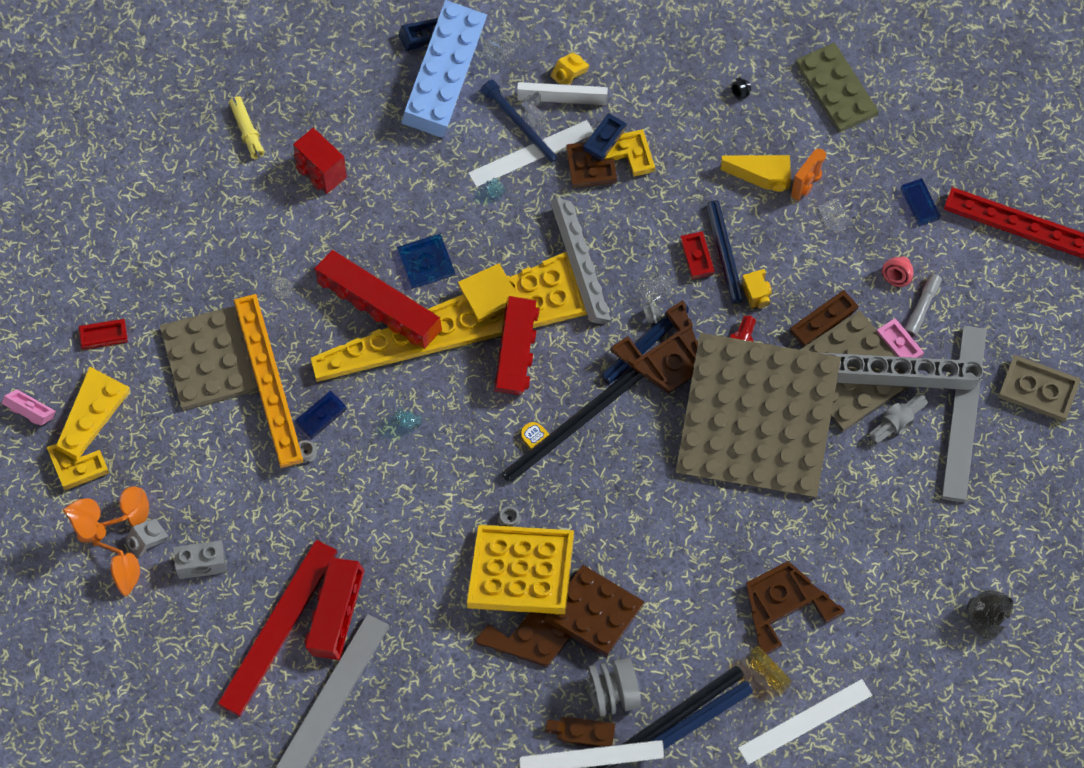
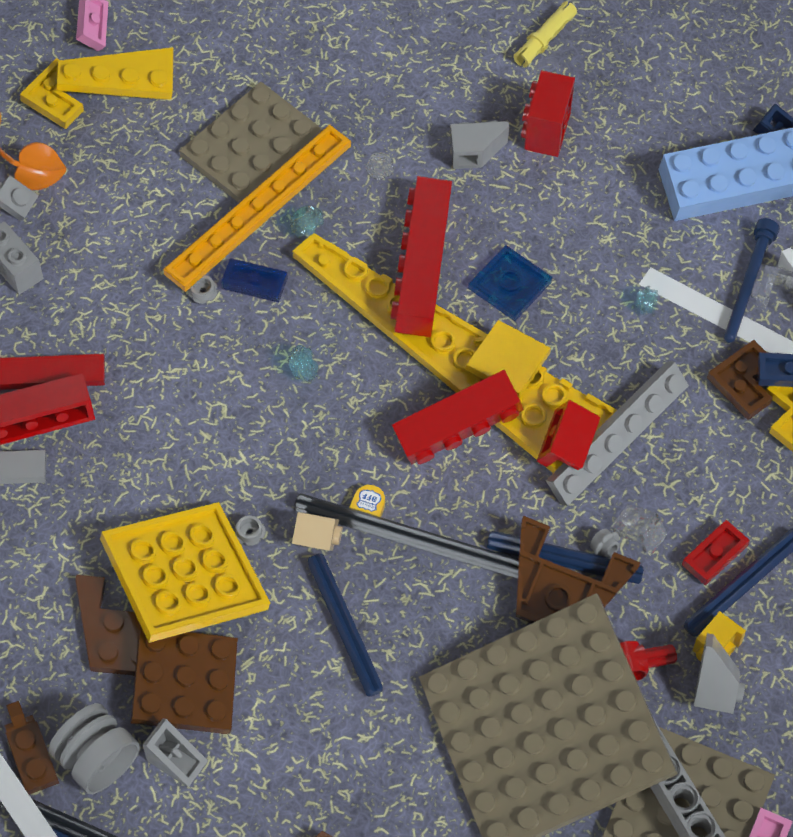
camera: 60 degrees right, 5 degrees down
(103, 334) = (219, 41): red tile -> none
(297, 357) = (305, 220): none -> clear light blue plate
(306, 220) = (477, 142): none -> light grey slope
(539, 476) = (317, 531): none -> tan brick
(570, 289) = (569, 436): none -> red panel
(611, 496) = (345, 625): none -> dark blue axle
(641, 643) = (173, 753): none -> light grey slope
(784, 304) = (718, 679): none -> light grey slope
(824, 318) = (735, 739): reddish brown plate -> none

